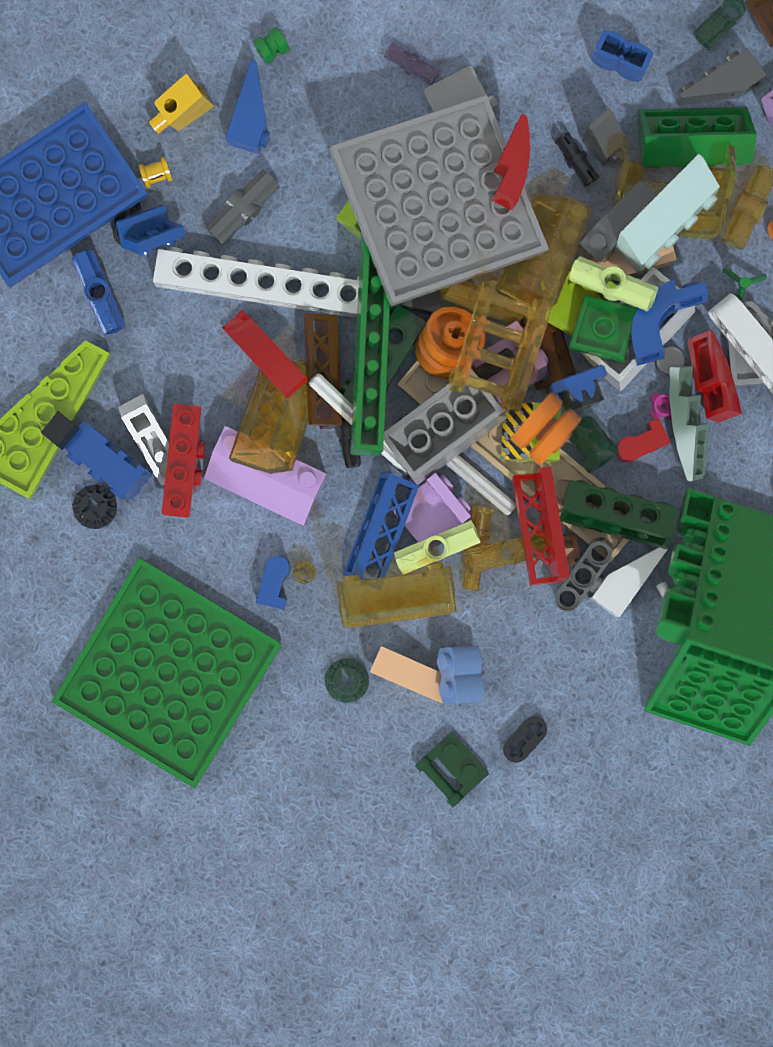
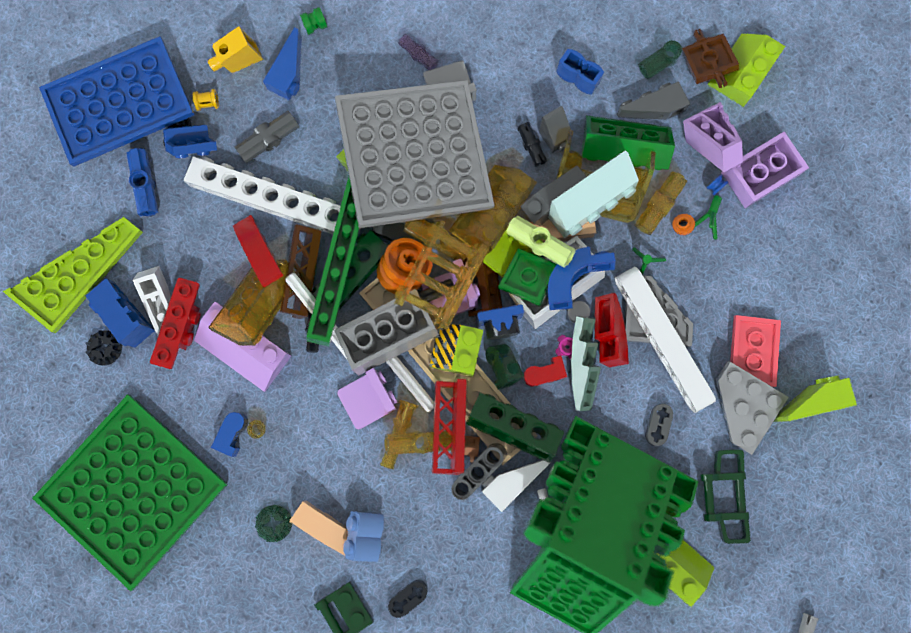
camera: 15 degrees right, 5 degrees down
(60, 430) = (85, 282): black tile -> none
(374, 521) = (317, 401): blue fence -> none
(396, 597) = (318, 463): clear yellow windscreen -> none
(420, 554) = (351, 431): yellowish green piece -> none
(513, 165) = (476, 135): red slope -> none
(546, 429) = (465, 349): orange wheel -> none

